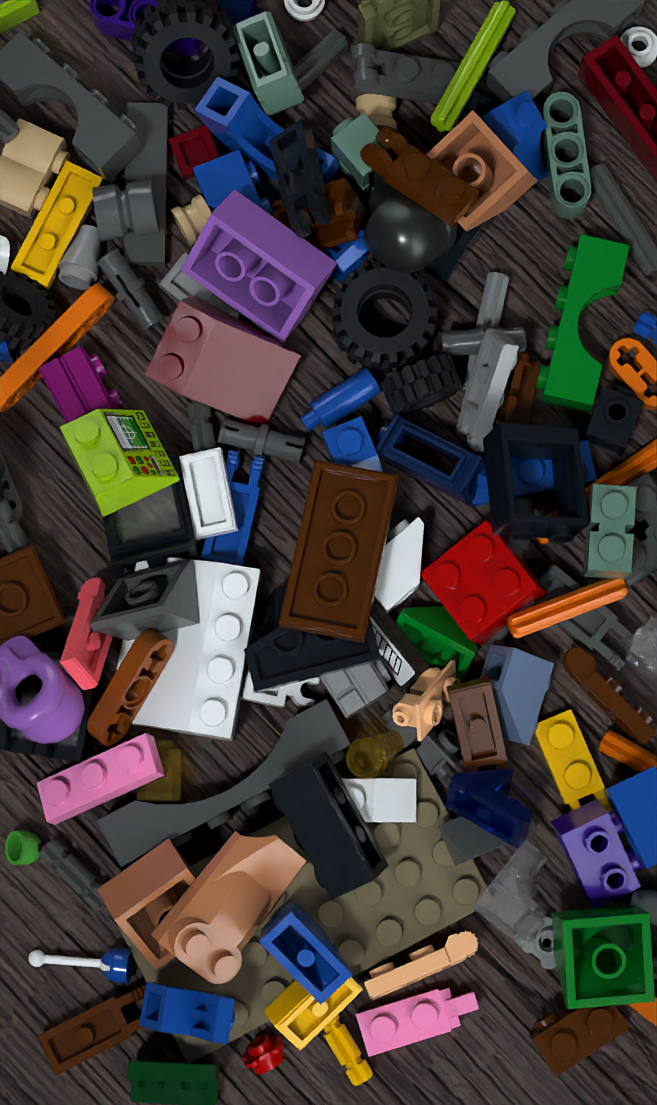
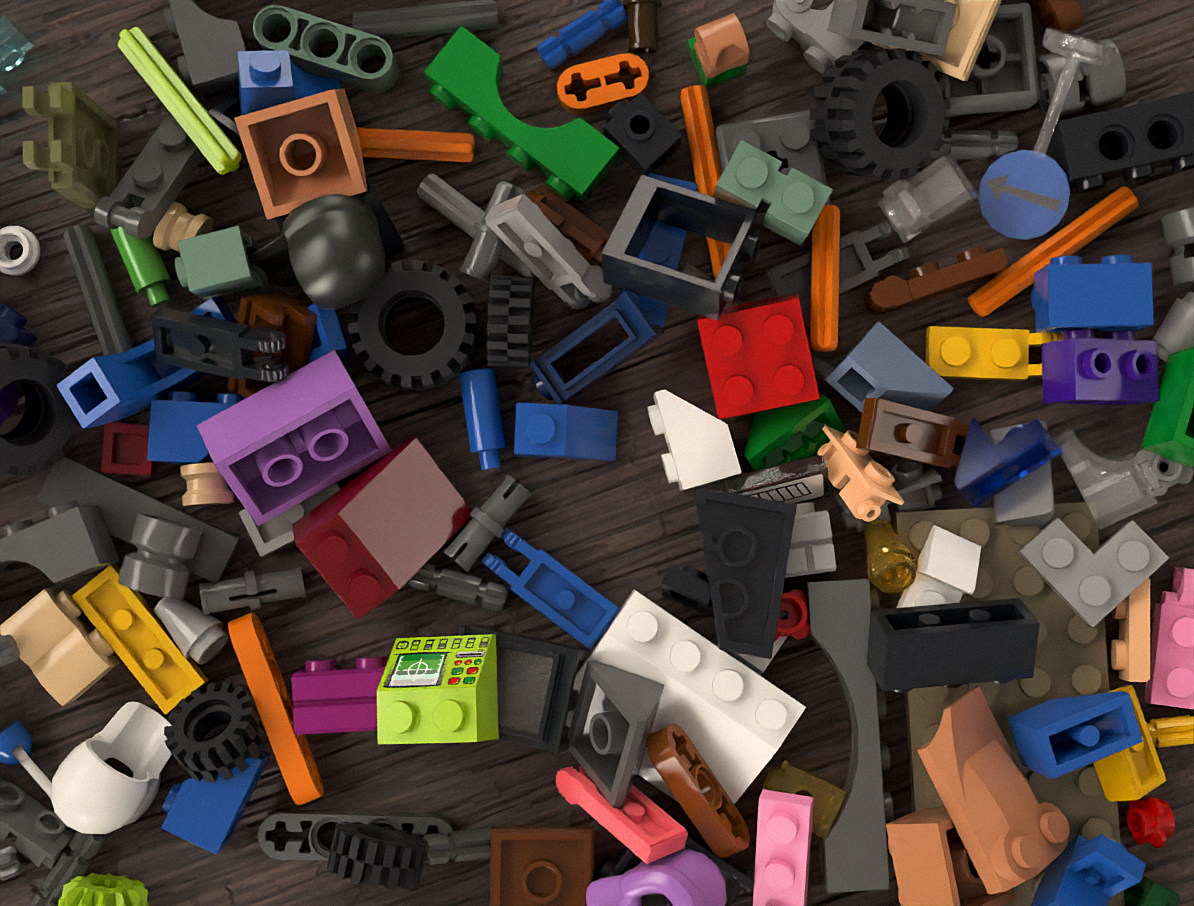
camera: 70 degrees left, 5 degrees up
(208, 493) = (522, 608): white tile -> none
(268, 63) = (67, 322): sand green brick -> none
(288, 705) = (796, 625): none -> red plate
(336, 100) = (144, 266): none -> bright green cylinder
(339, 551) = (658, 495): reddish brown tile -> none
(419, 176) = (282, 212): reddish brown hinge -> none
(428, 916) = (1093, 581): none -> light grey plate
(524, 254) = (417, 145): none -> orange axle

